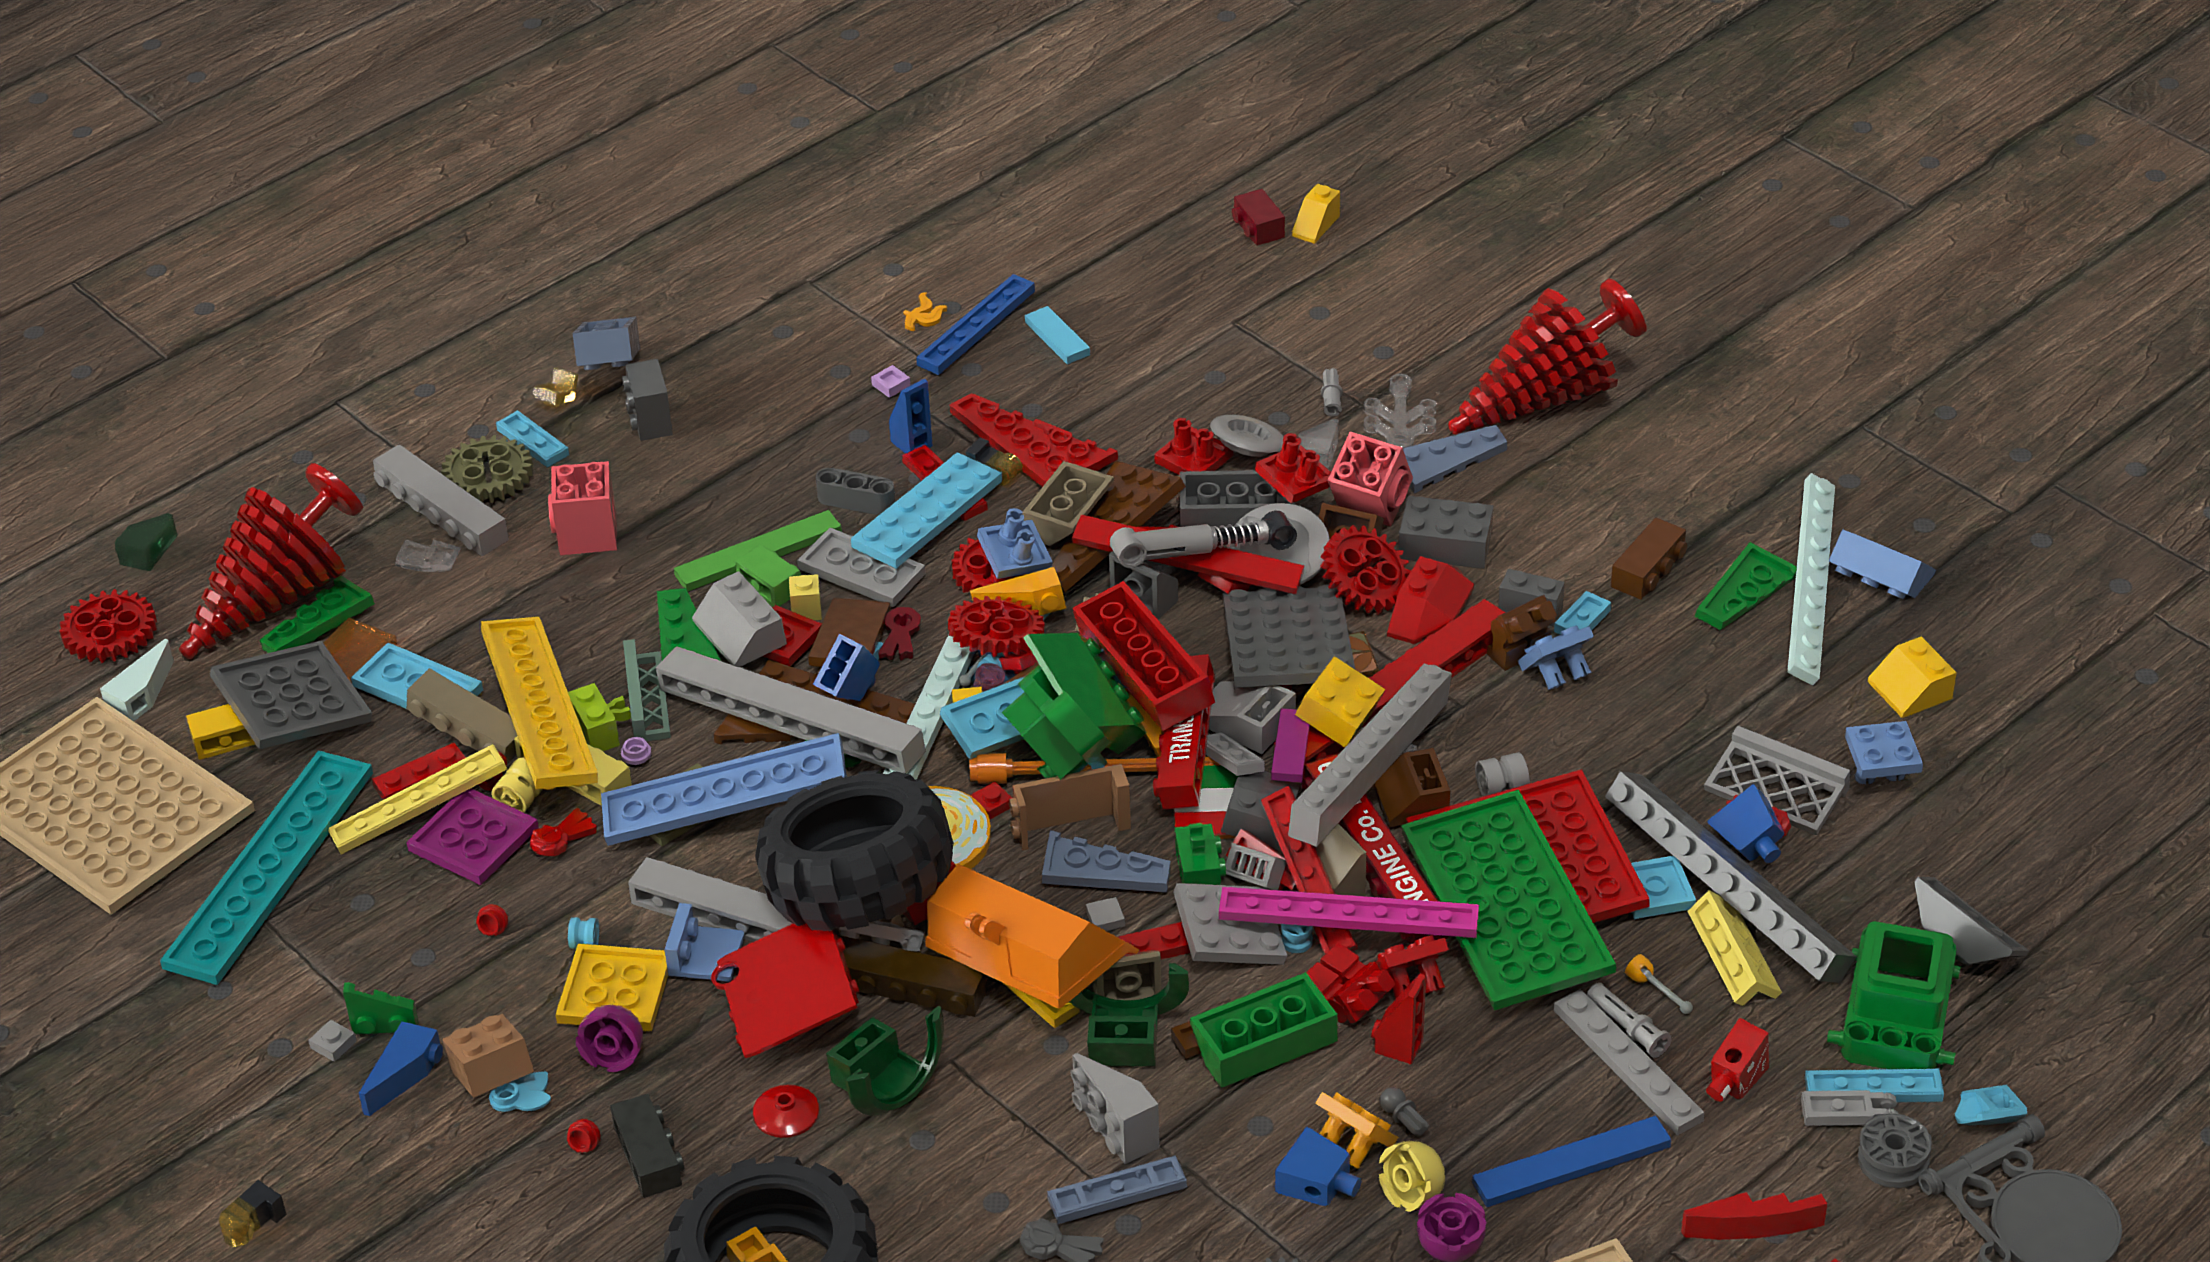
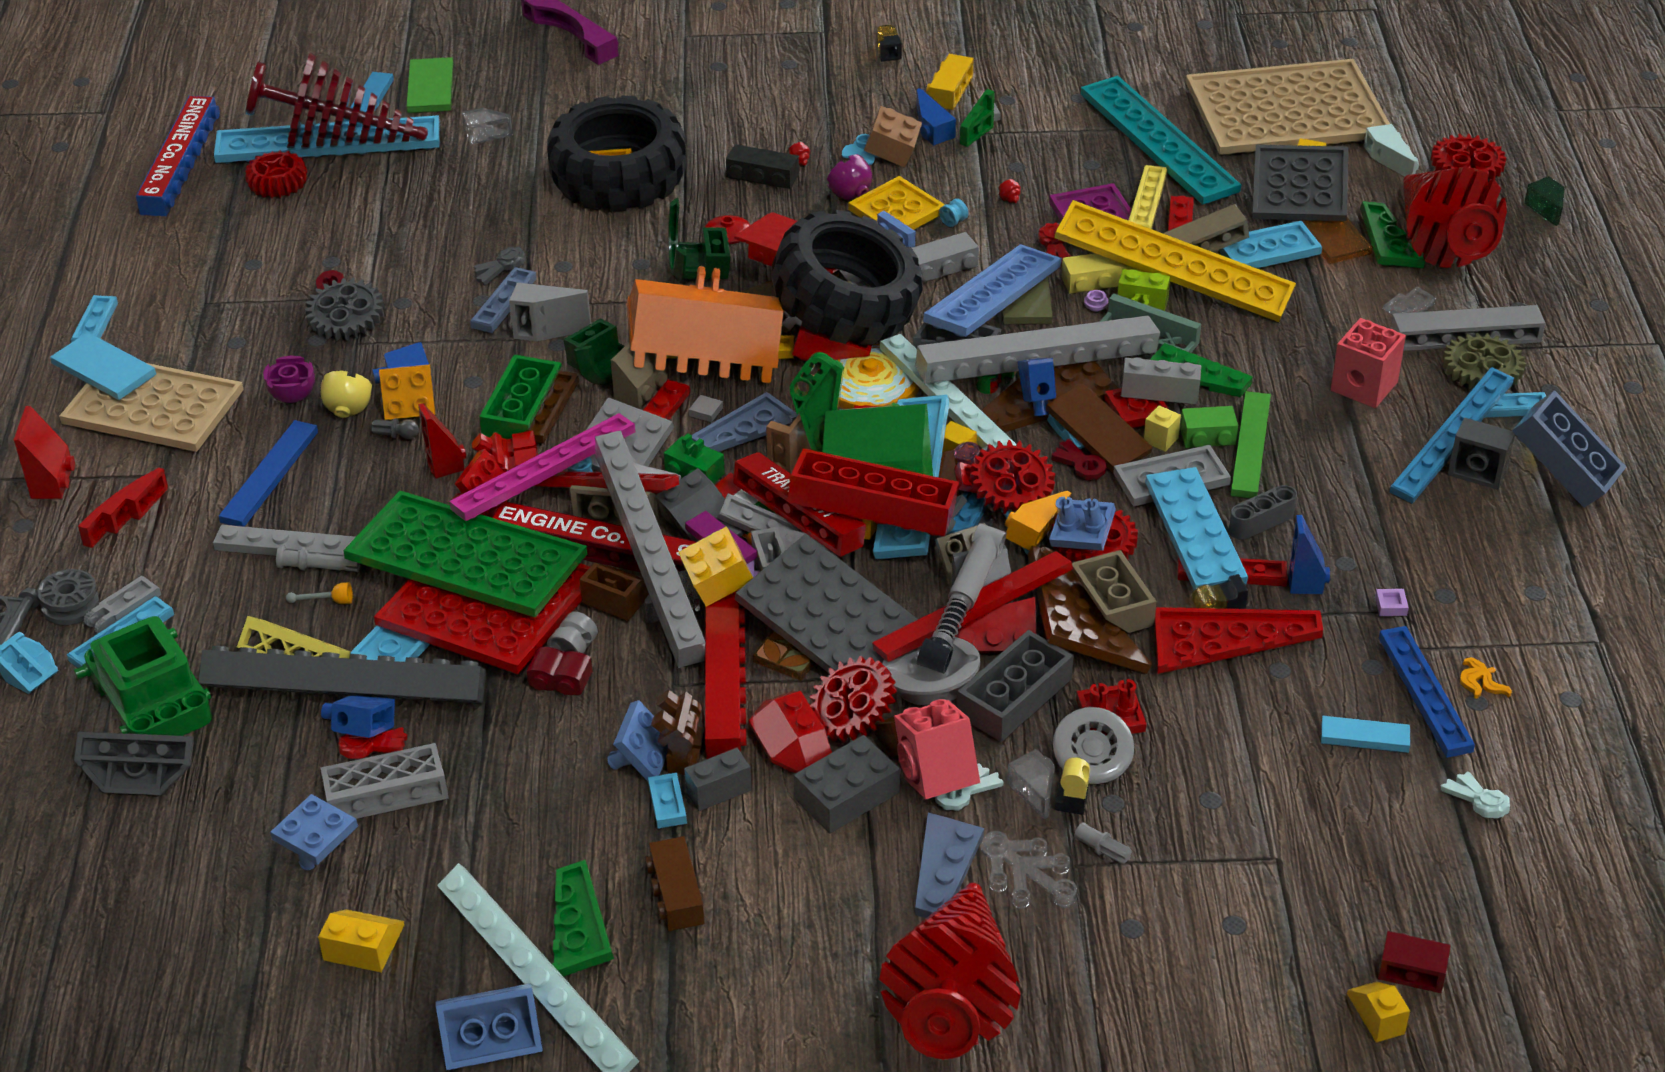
camera: 130 degrees right, 0 degrees up
(298, 1098) = (951, 80): none -> yellow brick
(623, 438) = (1440, 446): none -> dark azure tile
(1060, 251) = (1485, 802): none -> light aqua piece
(1294, 470) = (988, 699): red plate -> none
(1302, 413) = (1073, 787): none -> light yellow leg
(1543, 756) = (559, 671): none -> dark red brick
(1739, 1061) = (212, 563): red torso -> none

